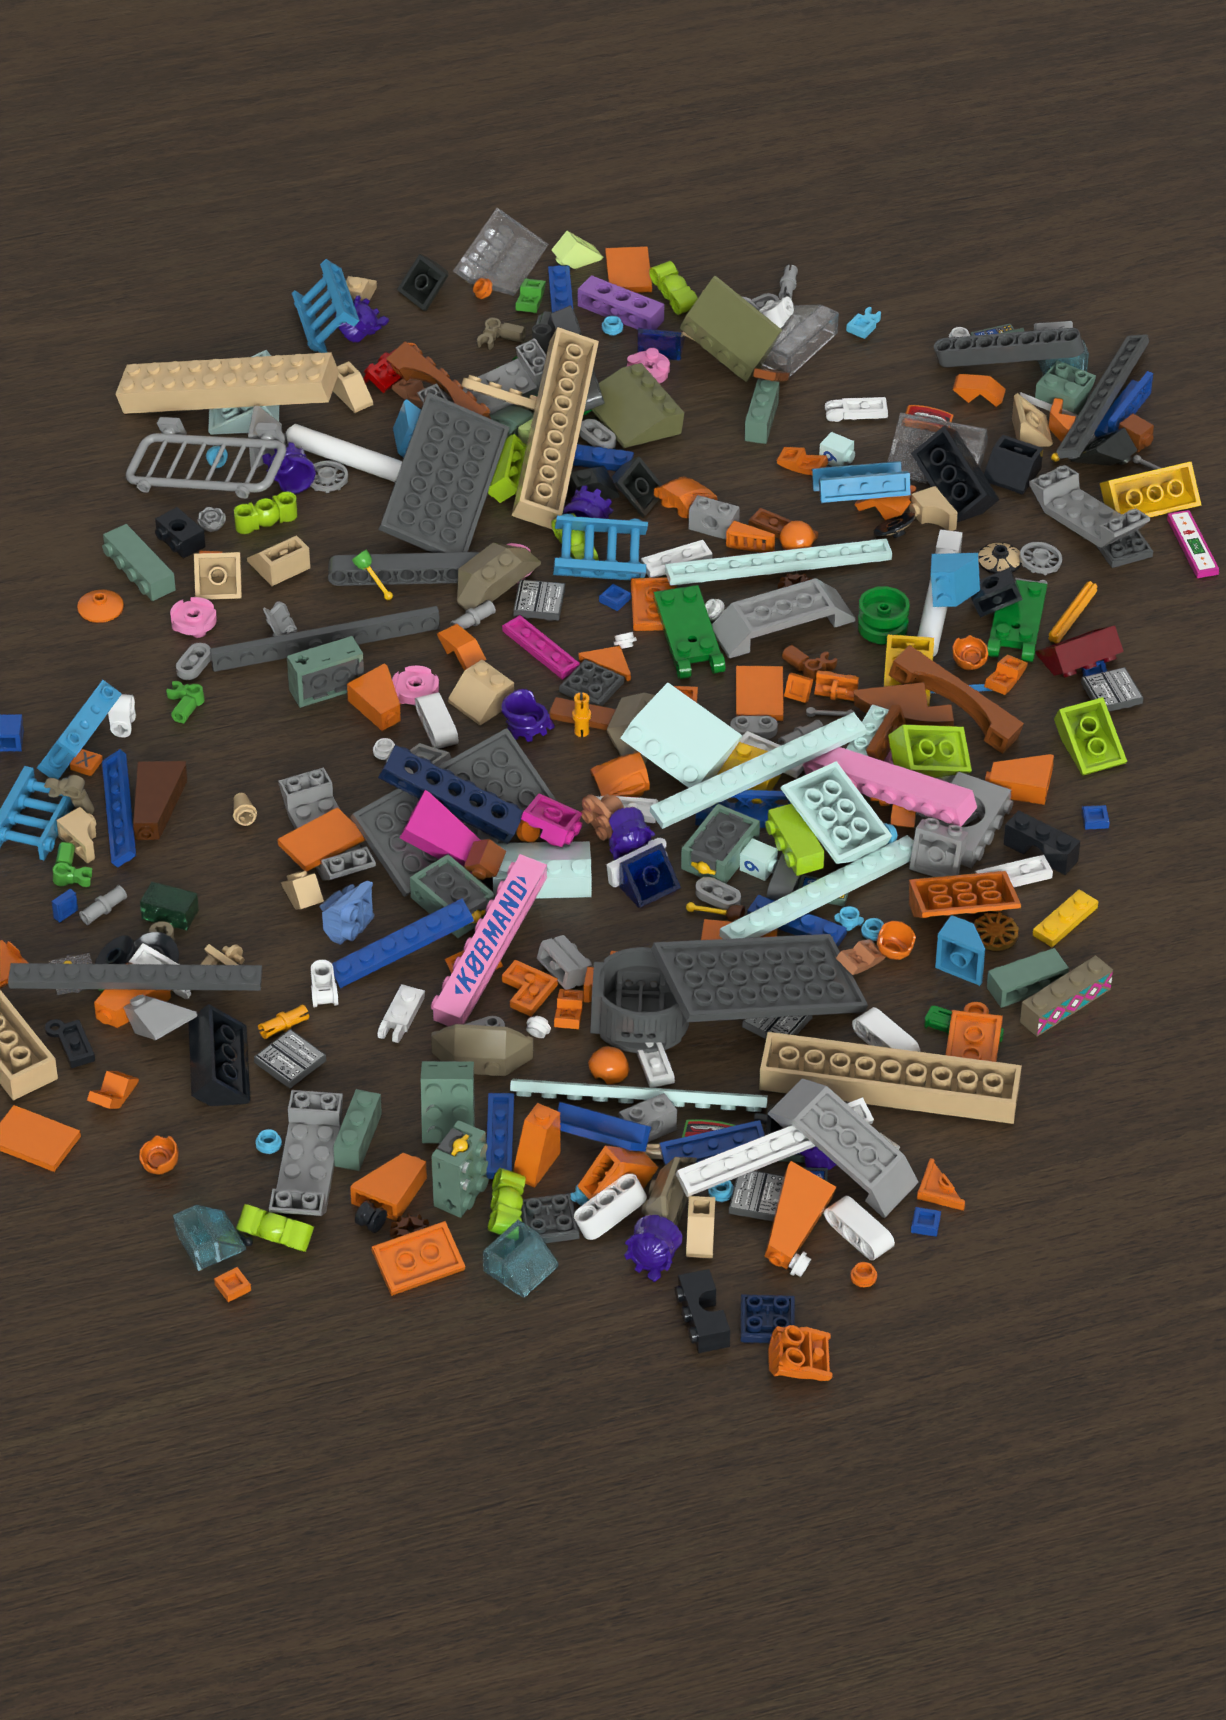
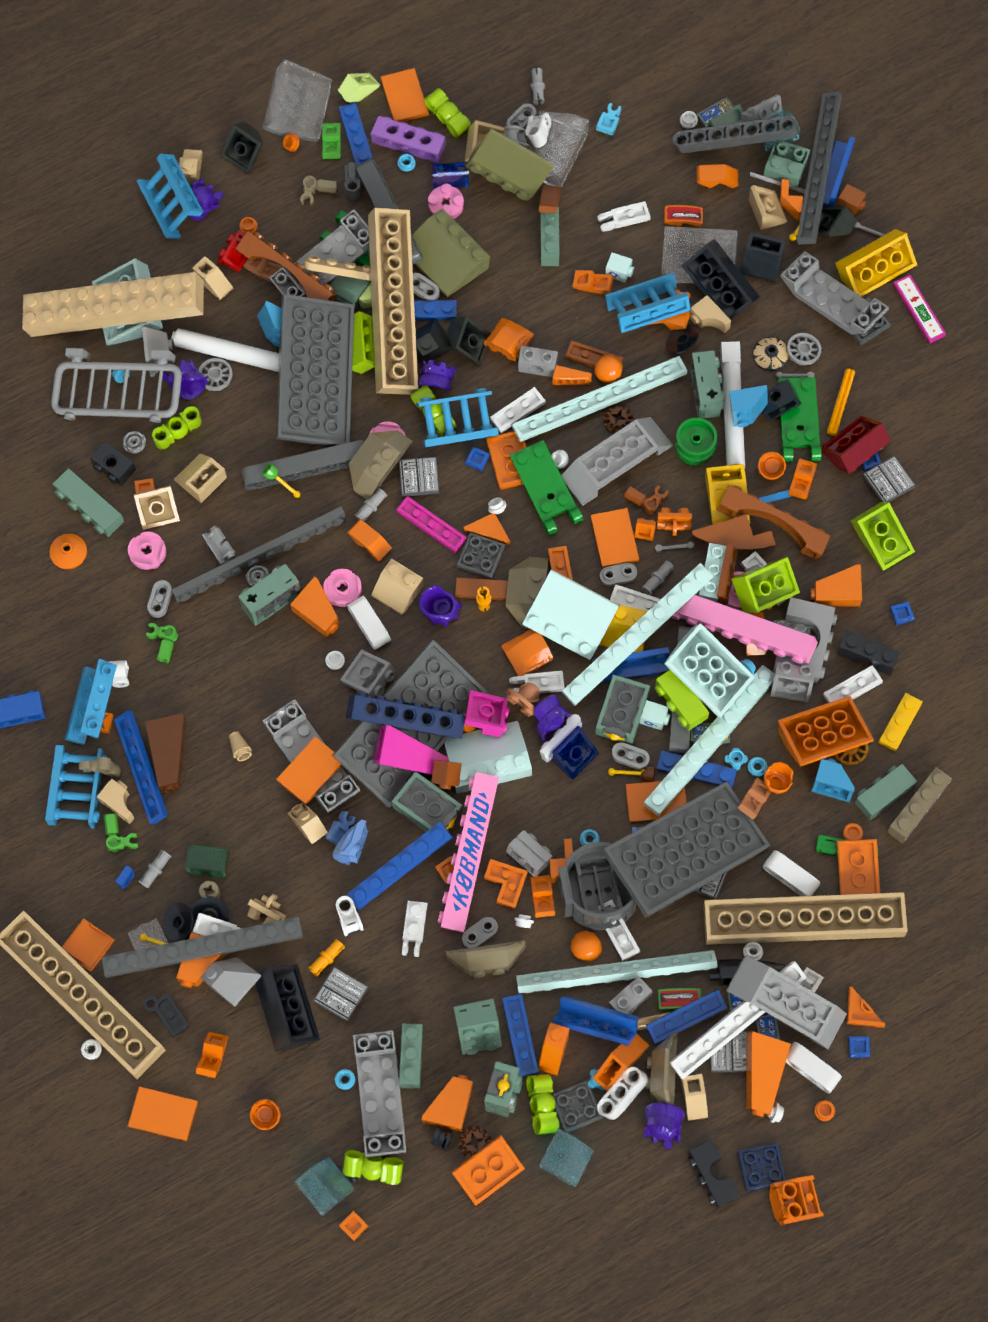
camera: 10 degrees left, 25 degrees up
(912, 562) = (707, 384): none -> sand green piece

